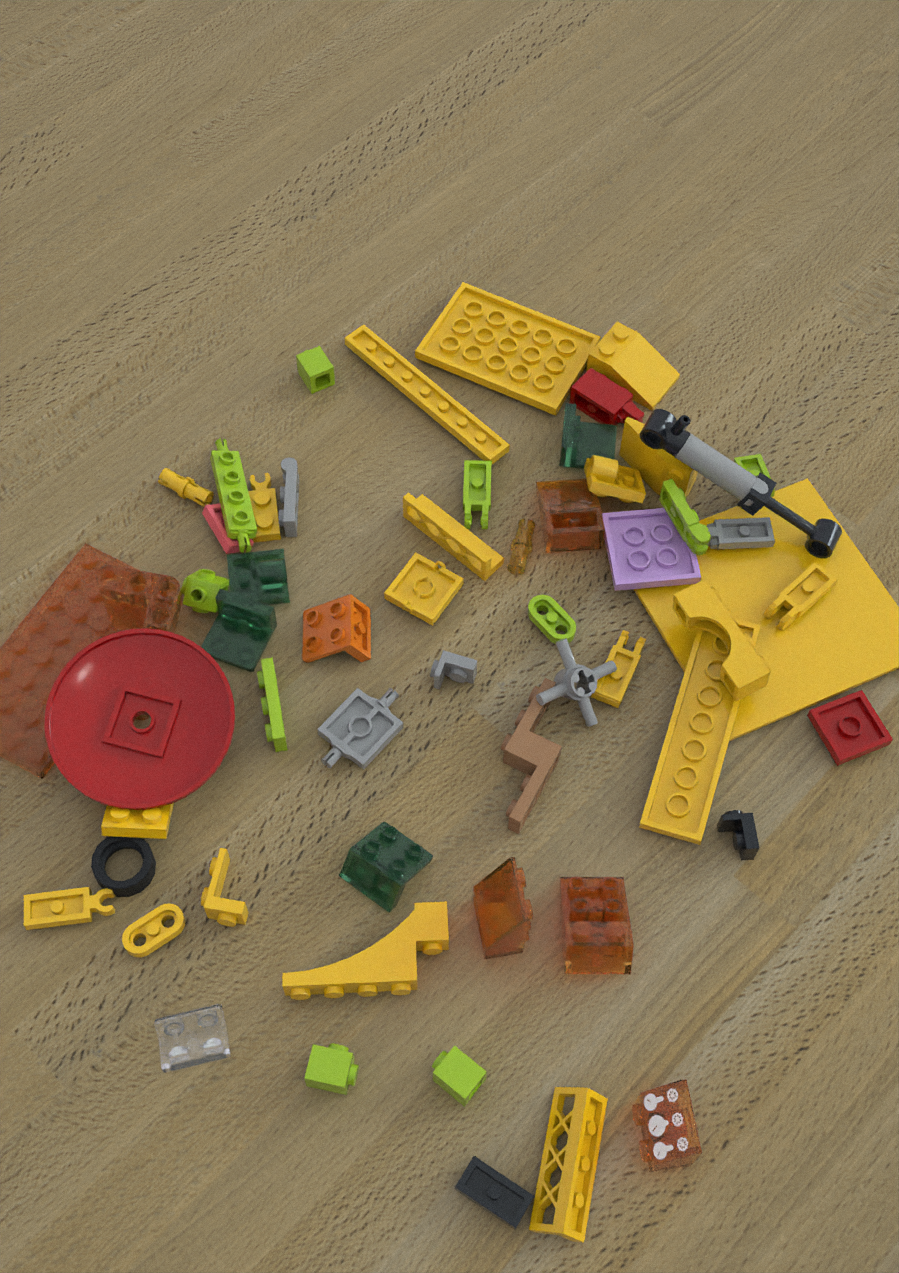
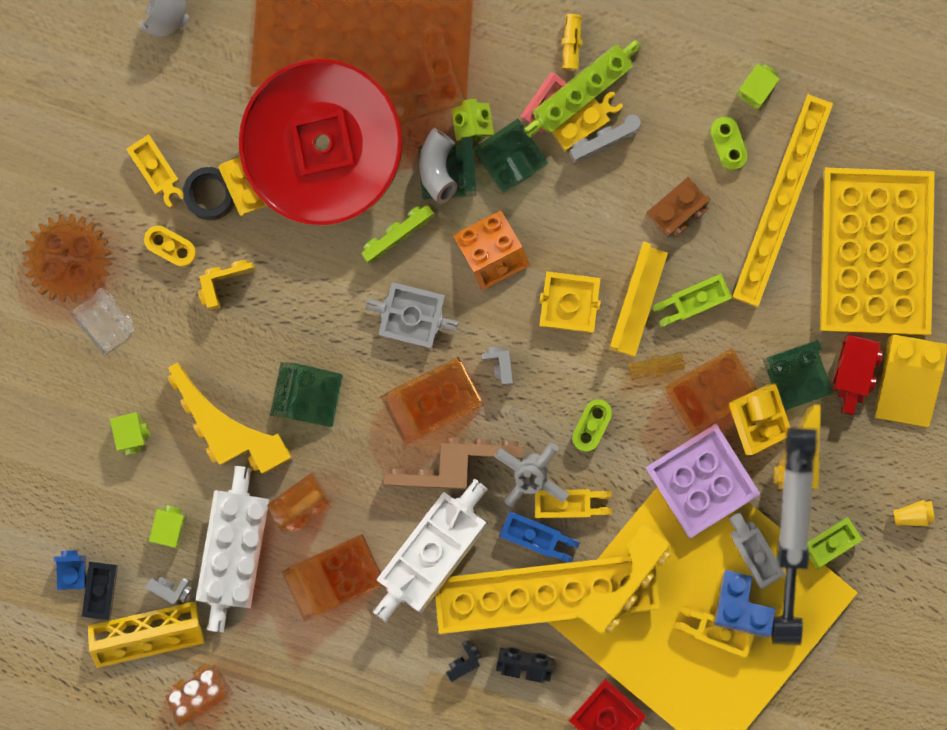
camera: 70 degrees right, 25 degrees up
(124, 1062) = (70, 234): none -> clear orange gear
(227, 639) = (433, 166): none -> light grey cylinder
(350, 413) = (728, 142): none -> lime plate
(386, 470) = (678, 207): none -> dark orange bracket
(454, 1218) = (70, 570): none -> blue bracket
(456, 749) = (431, 400): none -> clear orange slope
(517, 1015) = (232, 549): none -> white plate
(526, 1112) = (165, 589): none -> light grey bracket
(613, 810) = (432, 552): none -> white plate
(638, 713) = (536, 536): none -> blue hinge
(684, 518) = (738, 501): lime hinge -> none
(754, 407) = (915, 514): none -> yellow cone
(770, 768) = (512, 660): none -> black hinge
(786, 569) = (735, 610): none -> blue plate

